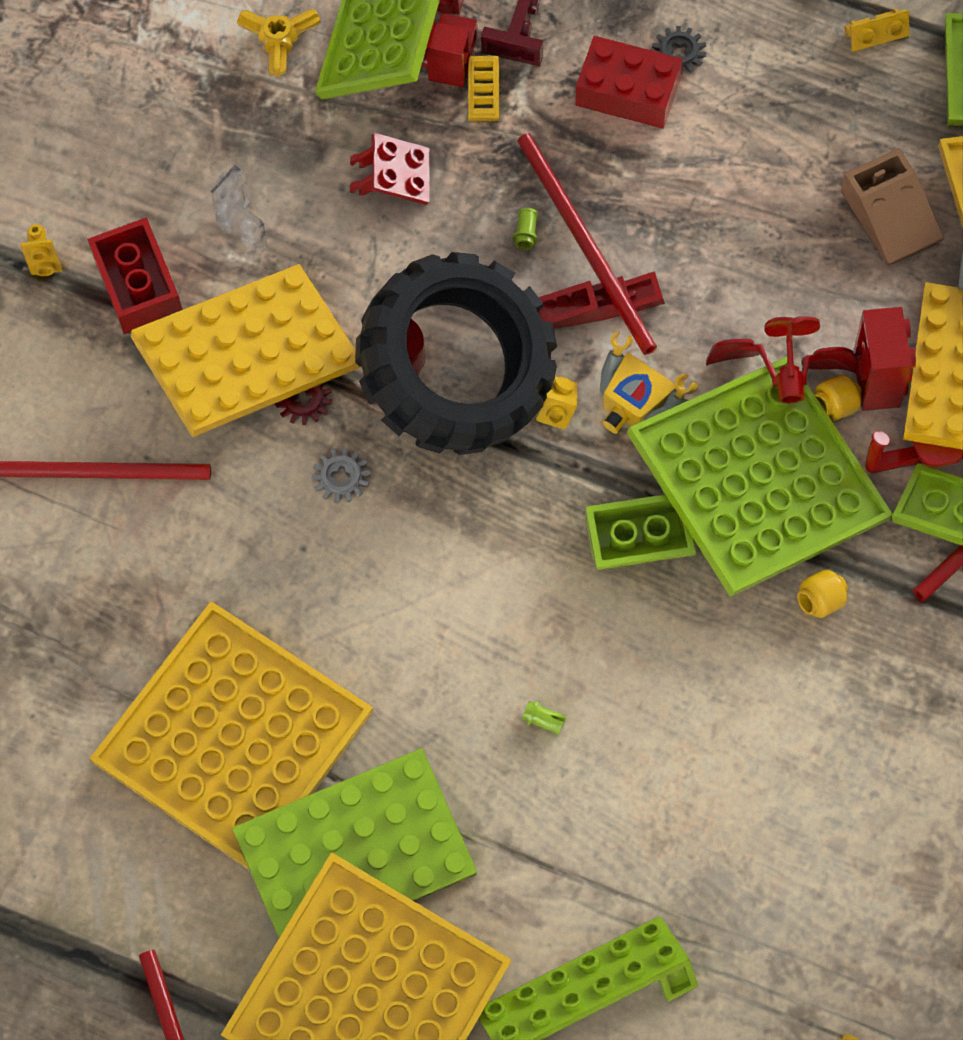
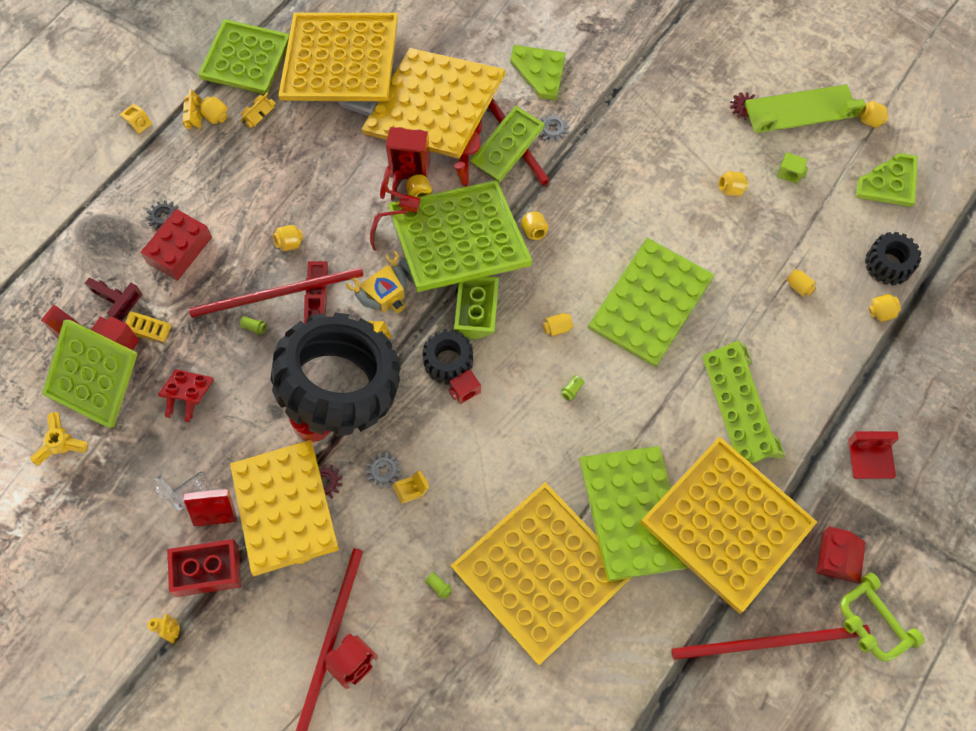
camera: 80 degrees left, 0 degrees up
(43, 499) = (350, 660): none -> red brick
(175, 601) = (438, 585): none -> lime pin
(220, 254) = (210, 507): none -> red plate
(318, 517) = (411, 487): none -> yellow bracket
(501, 554) = (464, 387): none -> red brick
(544, 491) = (443, 342): none -> black tyre
(649, 670) = (557, 324): none -> yellow brick
(687, 231) = (287, 238): none -> yellow head
(739, 815) = (651, 302): none -> lime plate
(886, 57) = (214, 110): none -> yellow head
(891, 206) = (310, 131): medium nougat slope -> none
(920, 122) = (252, 115): none -> yellow hinge

